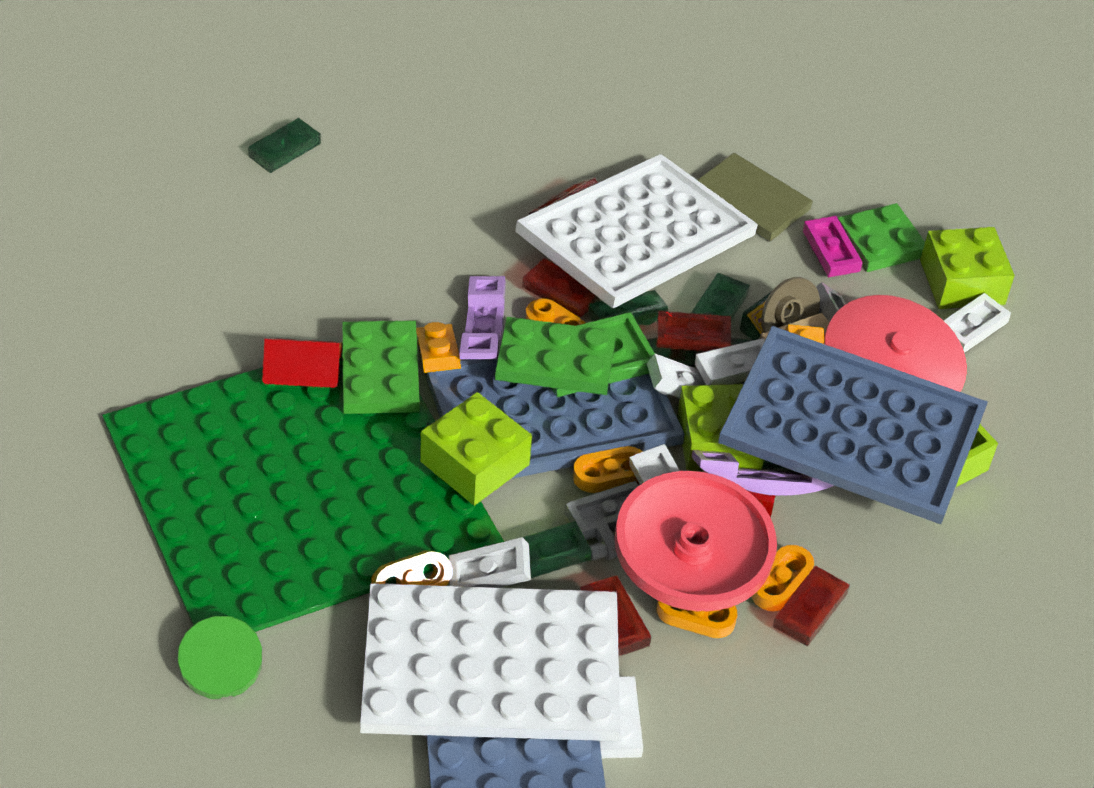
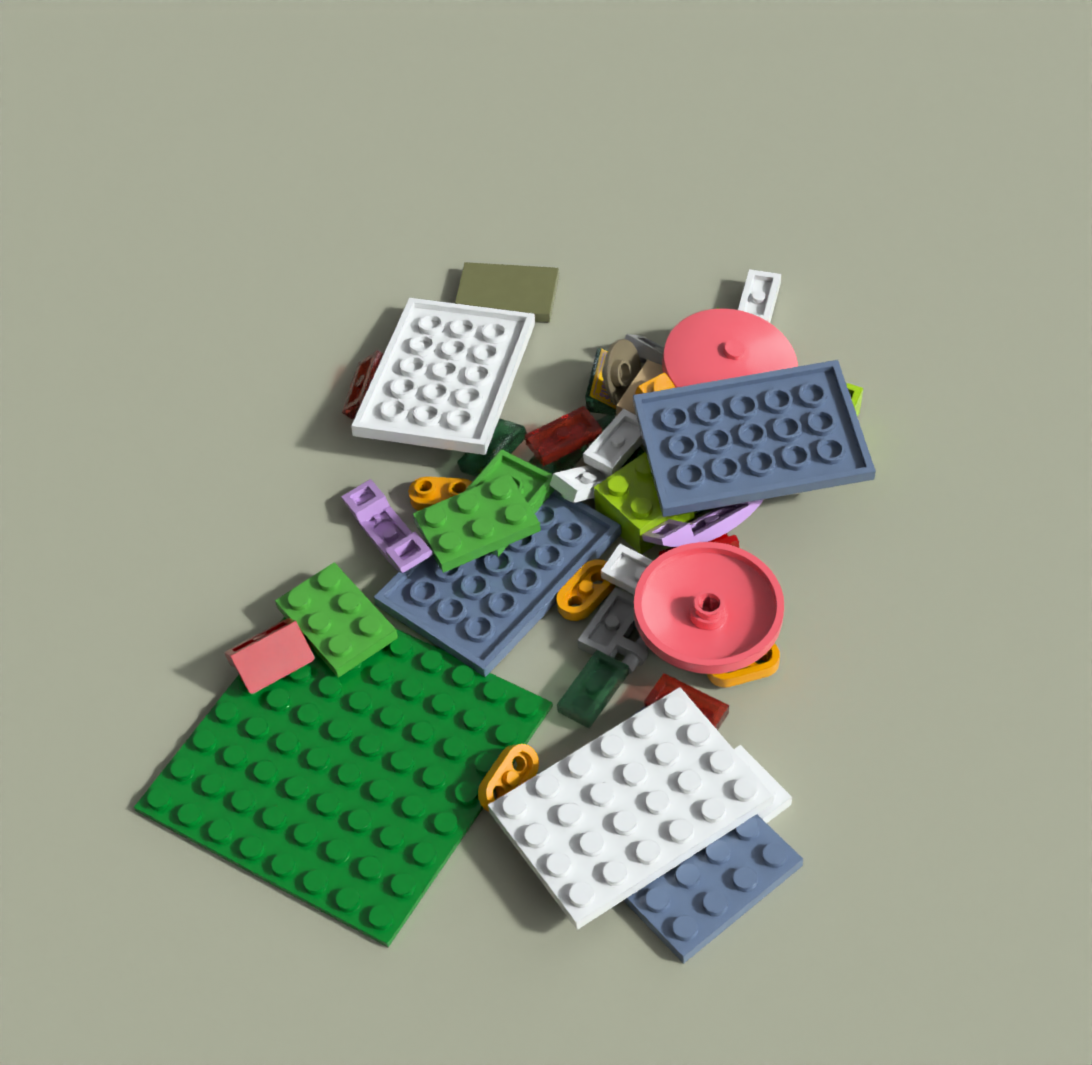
camera: 25 degrees left, 5 degrees up
(220, 657) = (413, 944): bright green tile -> none
(284, 145) = (83, 474): clear green plate -> none
(438, 347) = (371, 574): light orange plate -> none
(475, 448) = (478, 640): lime brick -> none
(492, 565) = (565, 729): white plate -> none
(554, 283) = (417, 461): clear red plate -> none
(722, 297) = (556, 394): clear green plate -> none
(782, 580) = (793, 598): light orange plate -> none
(811, 605) = (821, 603): clear red plate -> none
(832, 246) = (604, 298): dark pink plate -> none
(883, 237) = (633, 267): bright green plate -> none
(966, 265) = (719, 255): lime brick -> none

